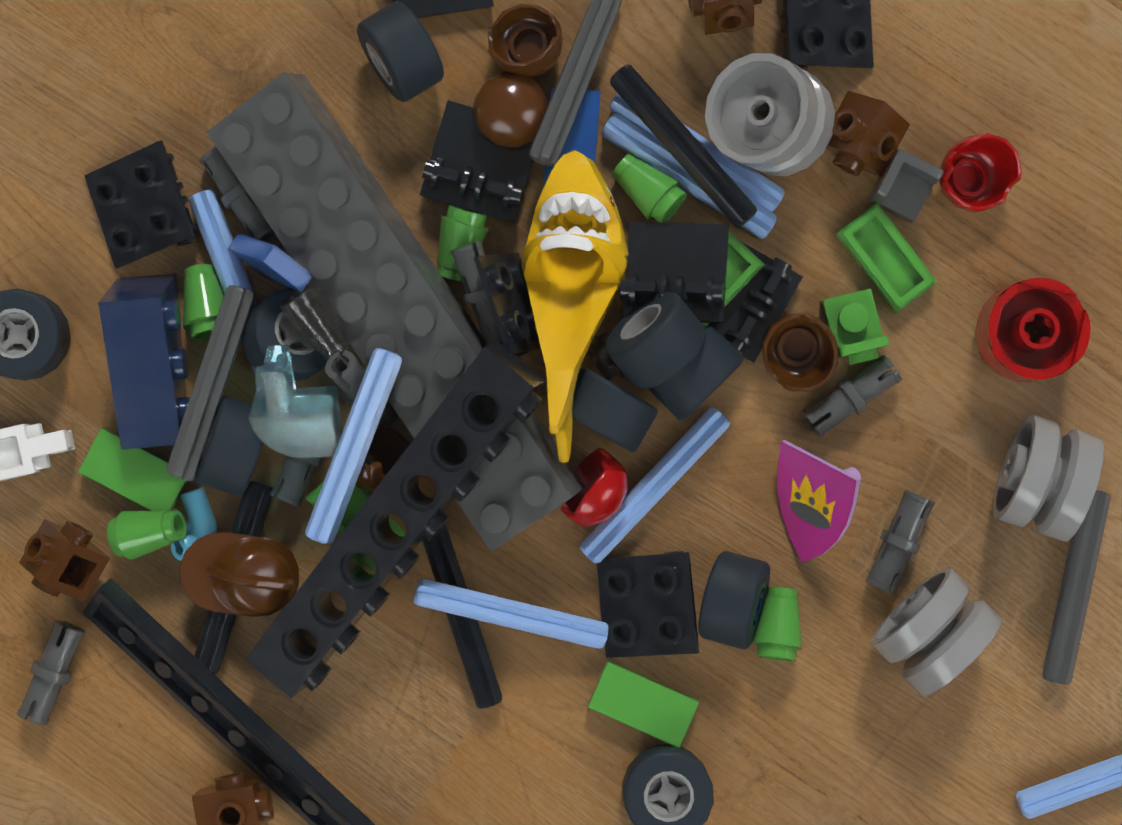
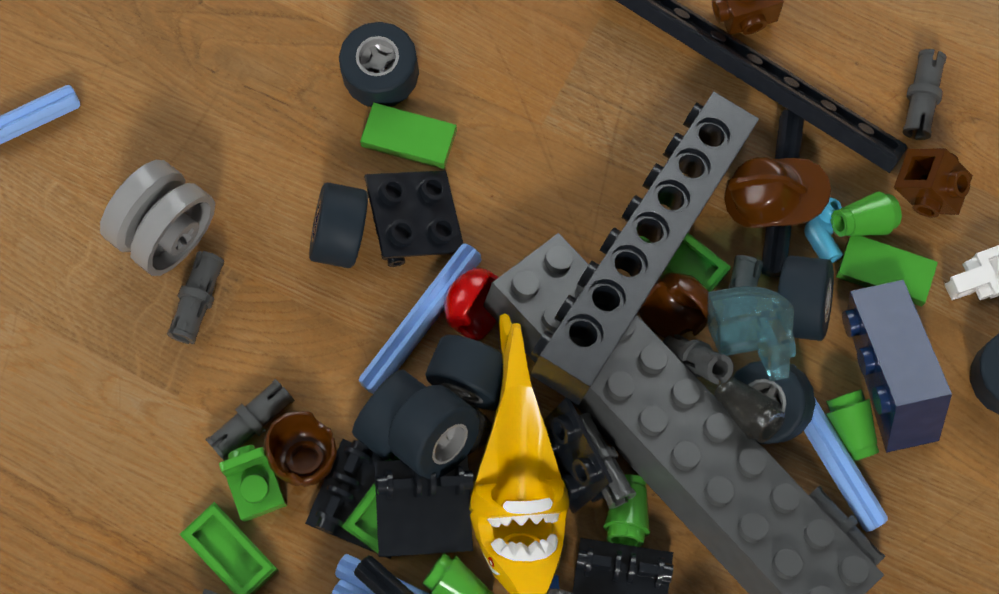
camera: 175 degrees right, 15 degrees down
(141, 205) = (930, 507): black hinge -> none
(210, 383) = (834, 347): dark grey axle -> none
(270, 262) = (801, 461): blue tile -> none
(353, 446) = (695, 302): light blue axle -> none
(464, 629) = (572, 179): black axle -> none
(510, 613) = (534, 189): light blue axle -> none
(779, 626) = (296, 211): bright green cone -> none
(814, 500) = (274, 319): dark pink shield -> none
(1048, 478) = (64, 361): light grey wheel -> none
(1054, 312) = (74, 474): red brick -> none
(1076, 593) = (35, 282): dark grey axle -> none

